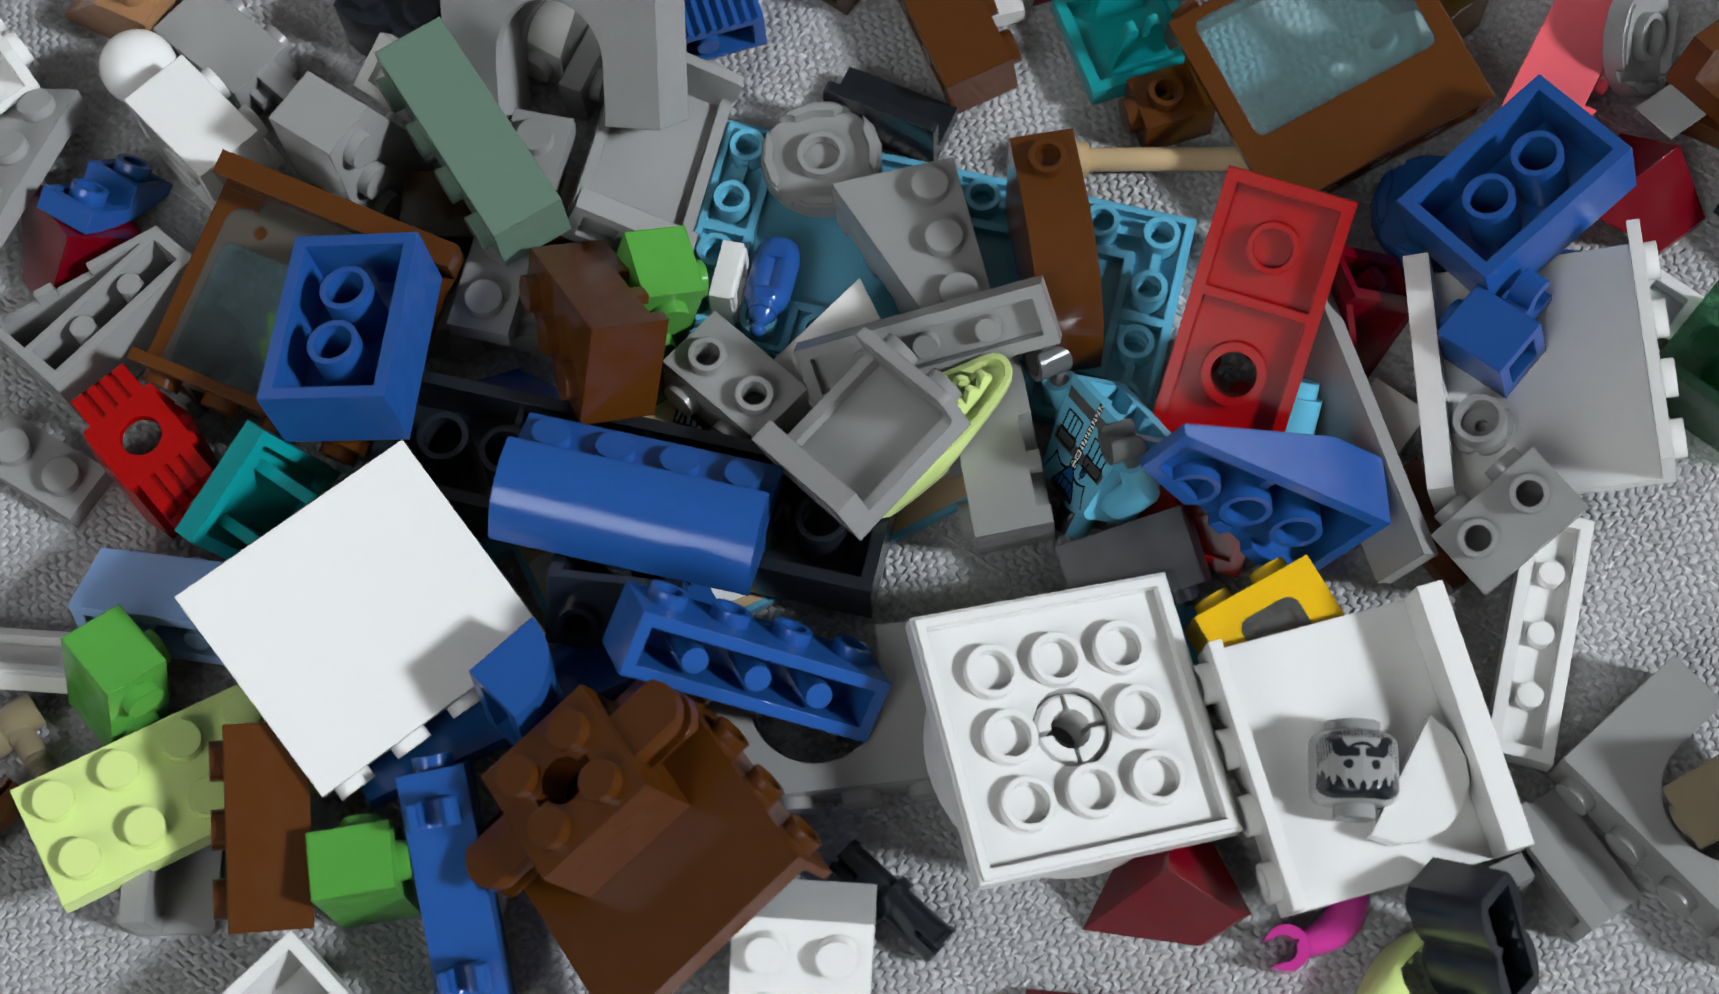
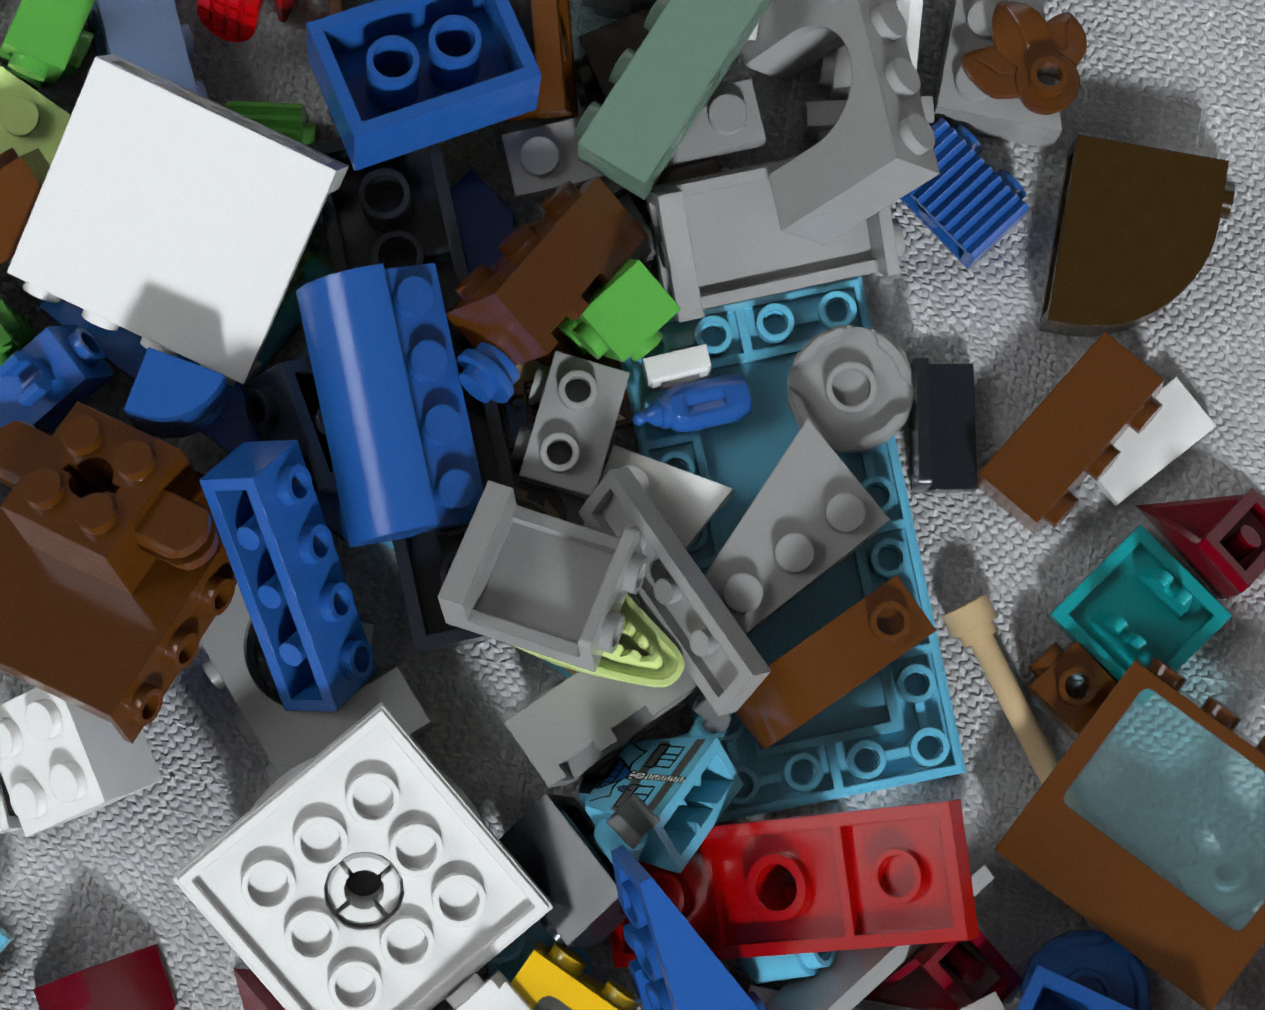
camera: 60 degrees right, 15 degrees up
(253, 491) = (252, 60): teal plate -> none
(653, 409) = (487, 373): none -> blue plate
(894, 901) = (174, 794): black pin -> none

